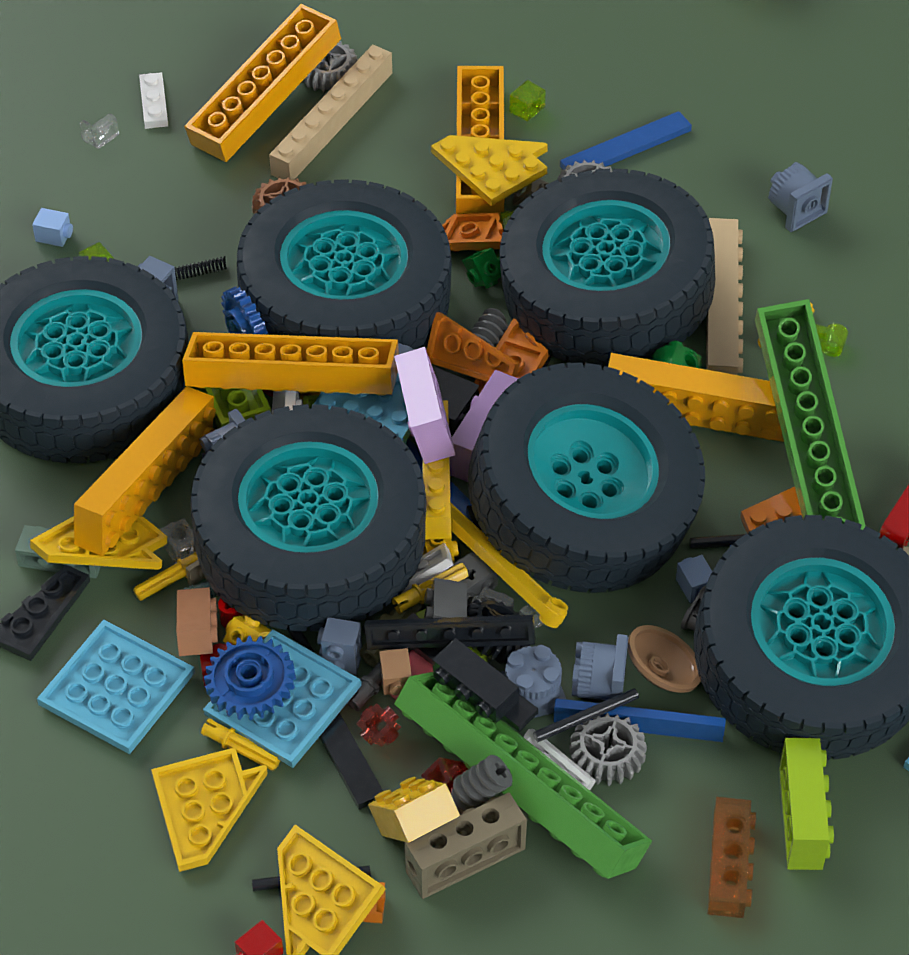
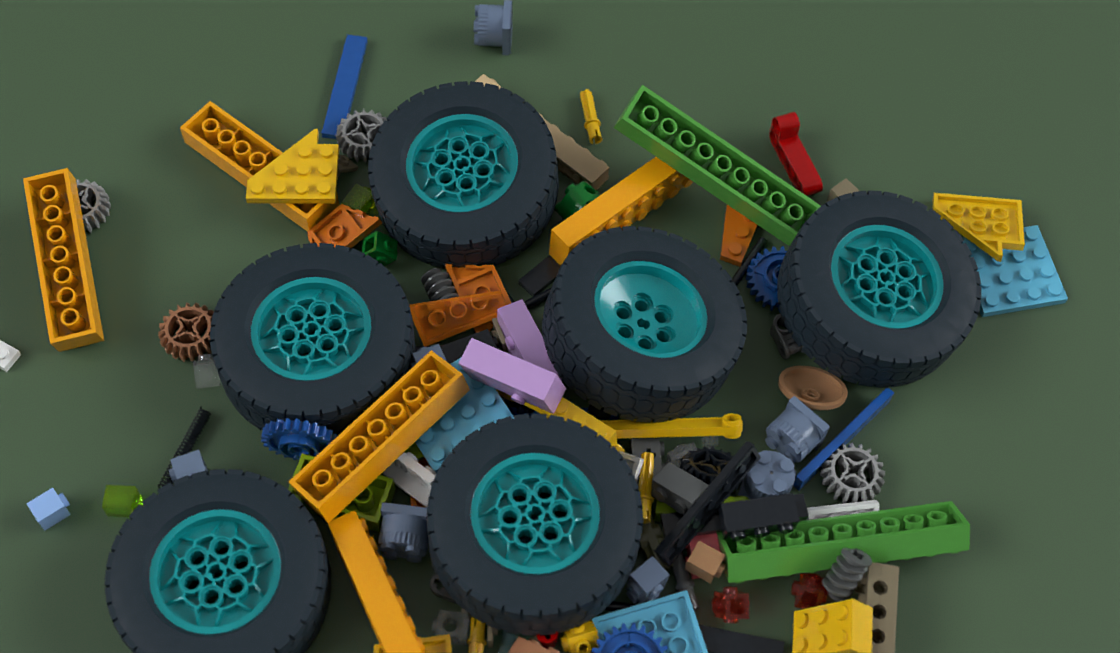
camera: 55 degrees left, 10 degrees up
(331, 113) = (132, 239): tan brick -> none
(527, 100) = (247, 110): clear neon green brick -> none
(586, 715) = (827, 469): black bar -> none
(693, 576) = (758, 321): light blue brick -> none
(726, 898) = (991, 476): clear orange brick -> none
(805, 804) = (986, 391): lime brick -> none
(832, 338) = (614, 105): clear neon green piece -> none

